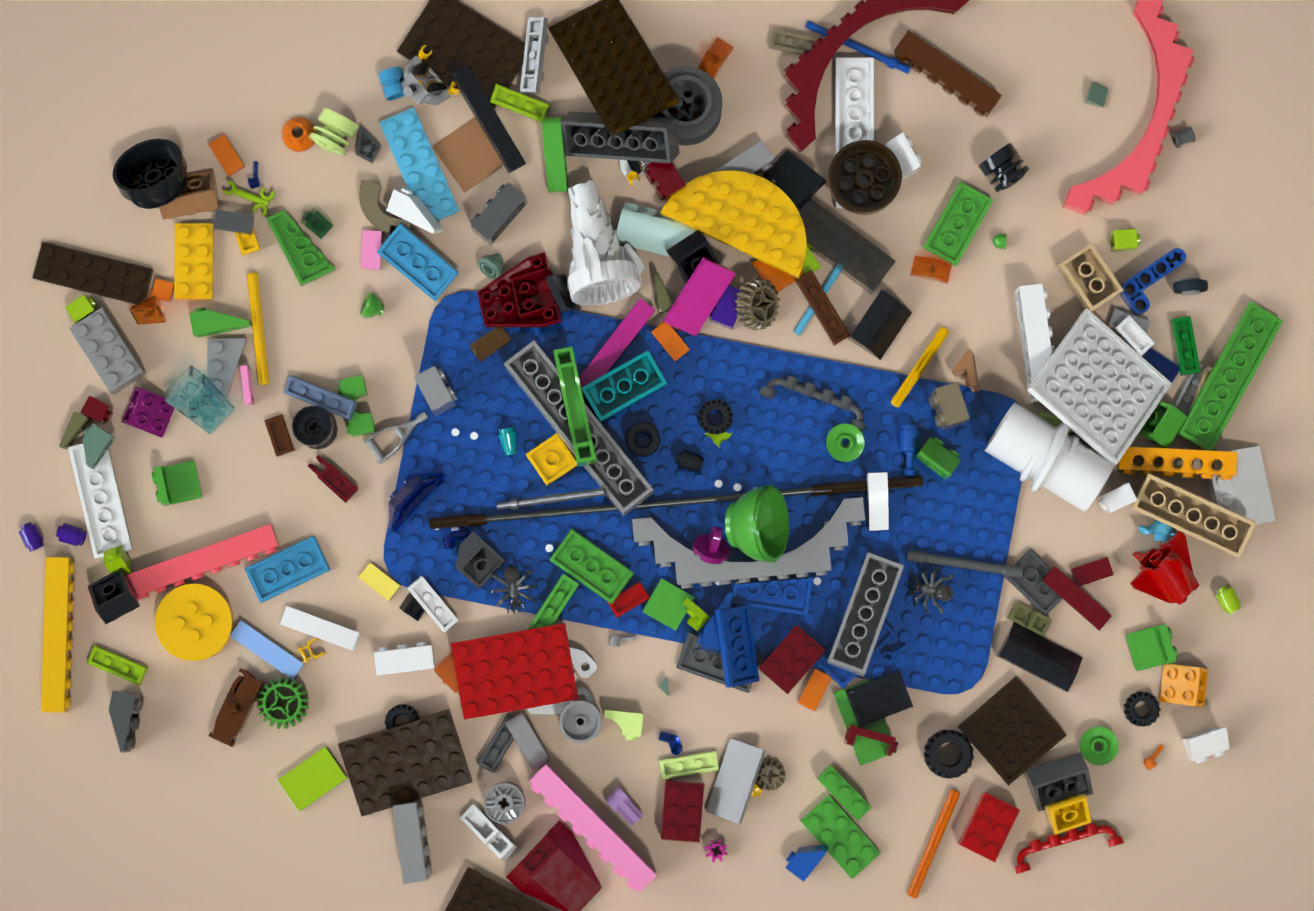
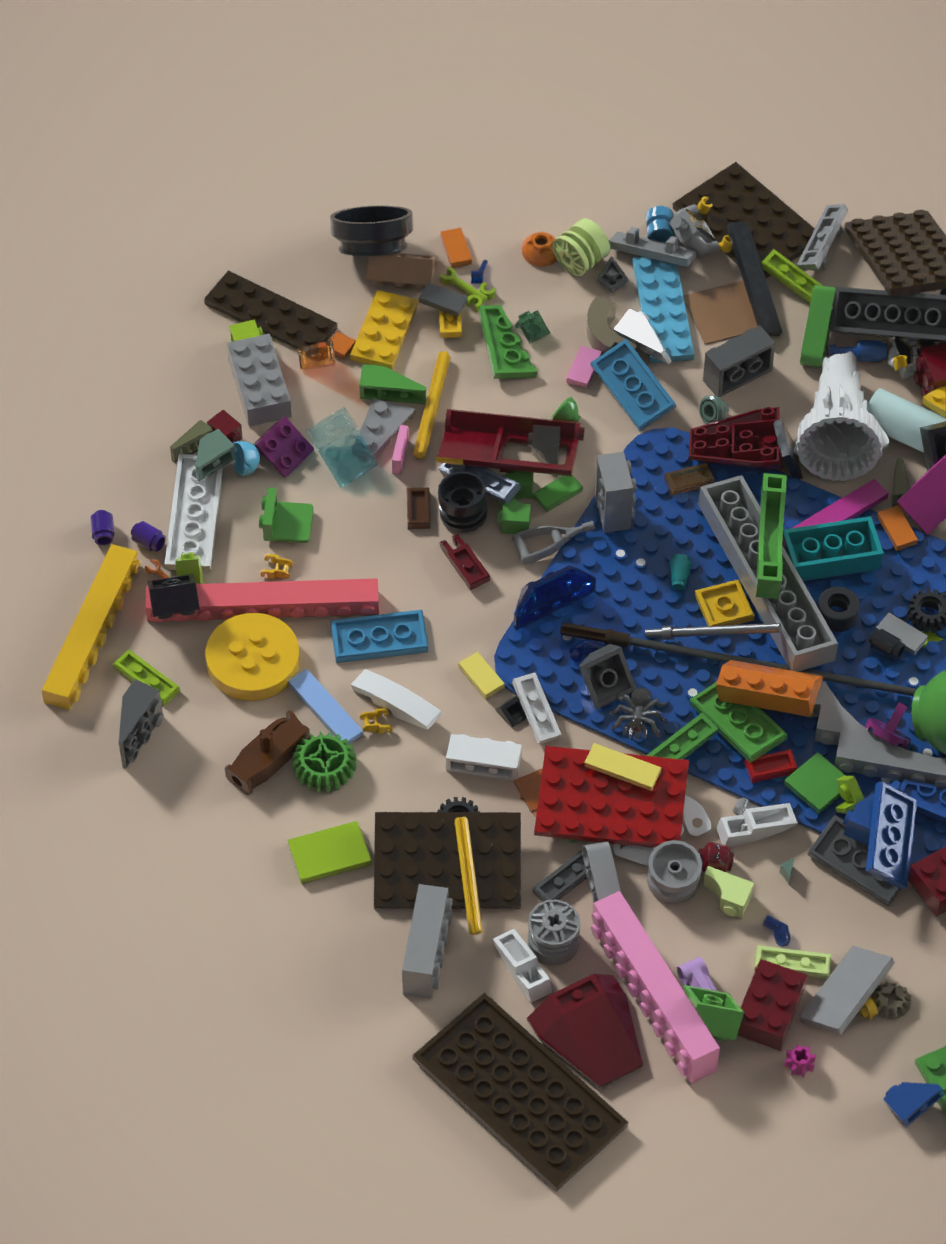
camera: 15 degrees right, 30 degrees down
(92, 564) = (158, 571): none -> orange hand
(124, 435) = (246, 458): none -> medium azure hair
(191, 523) = (271, 574): none -> yellow piece
(307, 359) = (481, 437): none -> dark red piece
(365, 349) = (545, 443): none -> clear smoke slope
(387, 384) = (557, 492): none -> bright green tile
(393, 111) = (668, 252): none -> light grey hinge
(426, 776) = (468, 876): none -> yellow axle
(516, 649) = (622, 766): none -> light yellow tile
(597, 165) = (864, 350): none -> blue piece
(607, 696) = (716, 856): none -> dark red head
(609, 536) = (768, 687): none -> orange slope
(631, 655) = (755, 824): none -> white slope
(643, 838) = (717, 1011): none -> bright green slope
(698, 444) = (909, 635): none -> light grey tile

